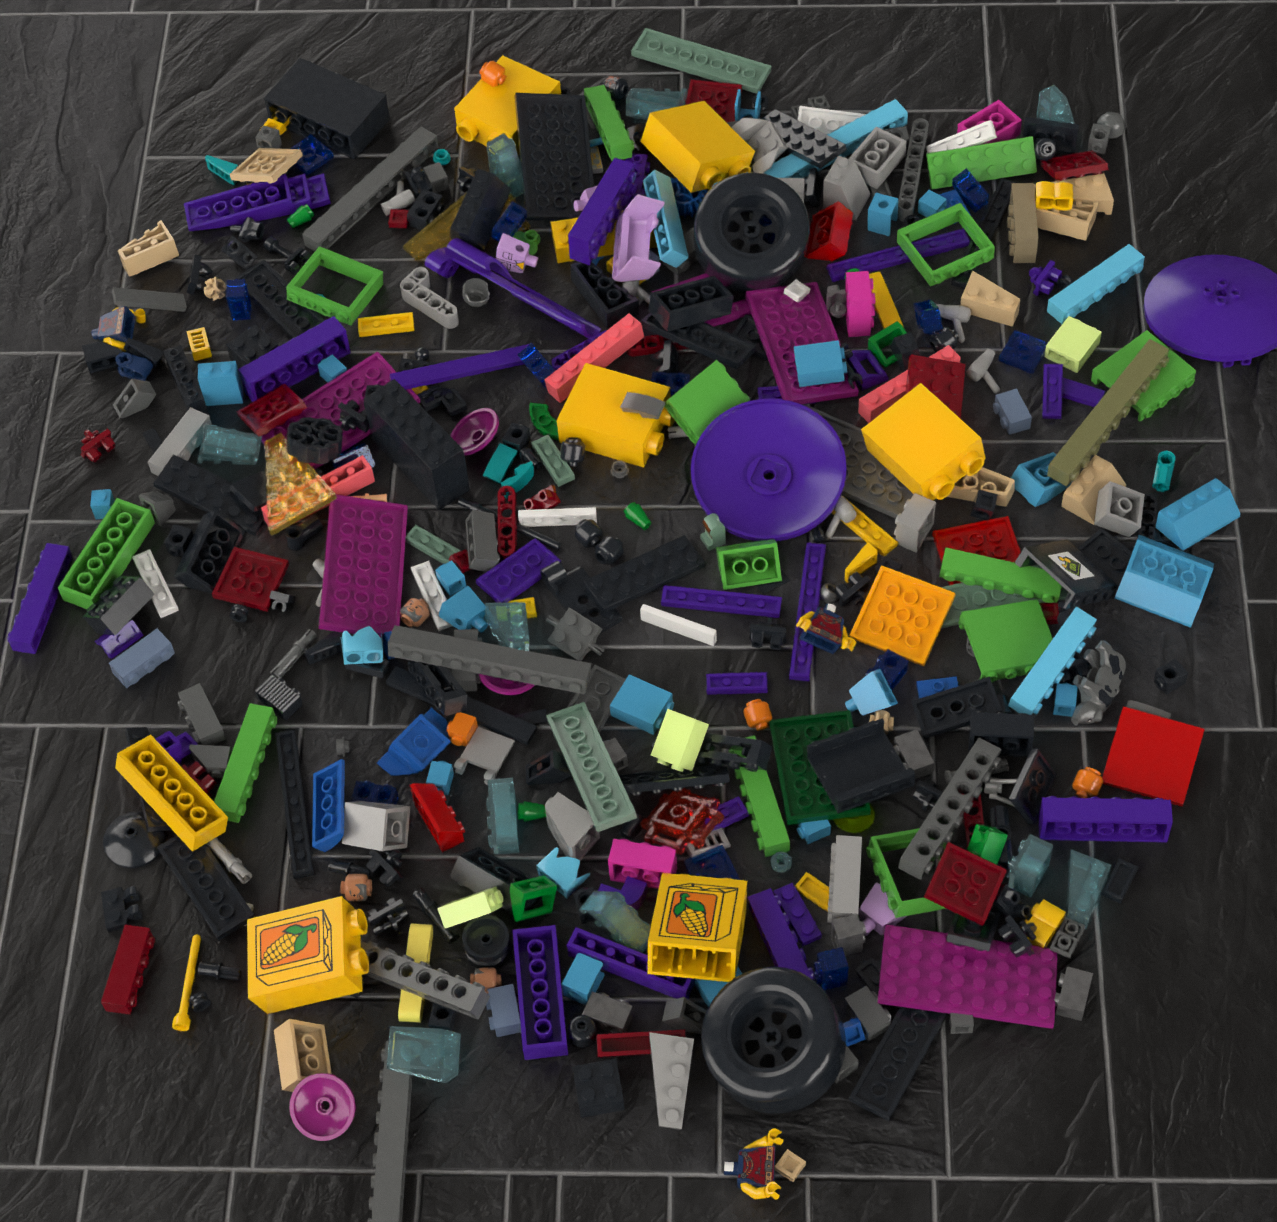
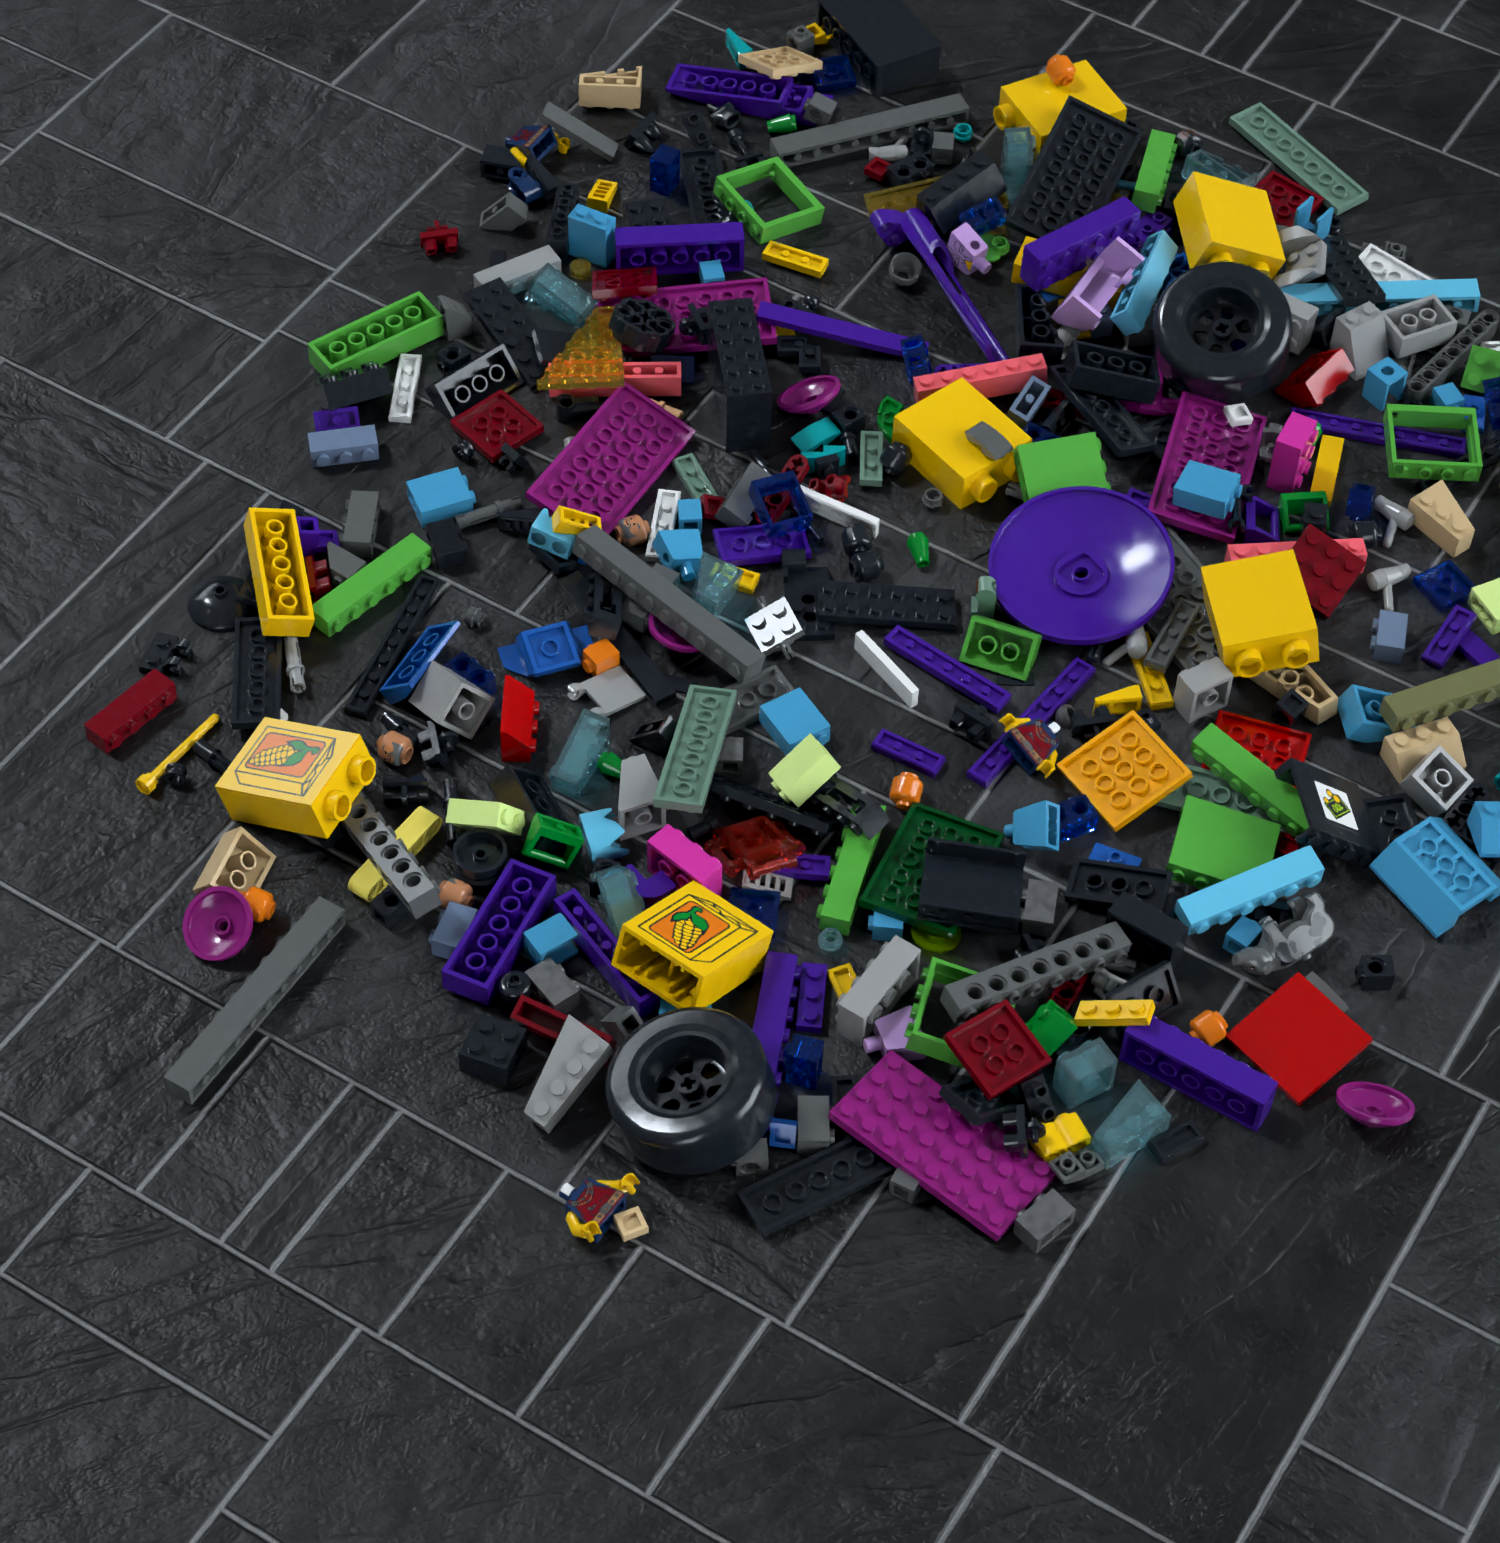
camera: 25 degrees right, 5 degrees down
(40, 598) = (285, 350): dark purple brick -> none
(101, 502) = (404, 287): dark azure brick -> none
(215, 288) = (648, 149): tan gear -> none
(224, 413) = (580, 268): none -> clear yellow tile
(248, 661) = (440, 496): none -> dark azure brick
(325, 191) = (819, 109): none -> dark grey brick
(342, 1069) = (261, 903): none -> orange head
(367, 638) = (572, 521): none -> yellow slope
(417, 294) = (846, 244): light grey beam -> none
(424, 1052) = (346, 925): clear light blue slope -> none
(441, 775) = (548, 690): dark azure brick -> none
(525, 484) = (826, 466): none -> black plate
(528, 523) = (776, 484): none -> clear blue window
(641, 356) = (1028, 402): none -> sand blue brick
(849, 934) = (844, 1039): flat silver brick -> none
(864, 490) = (1172, 635): none -> dark grey tile
(888, 721) = (1033, 861): tan gear -> none
(1026, 809) = (1115, 1013): none -> yellow plate
(1236, 777) = (1375, 1104): none -> magenta dish

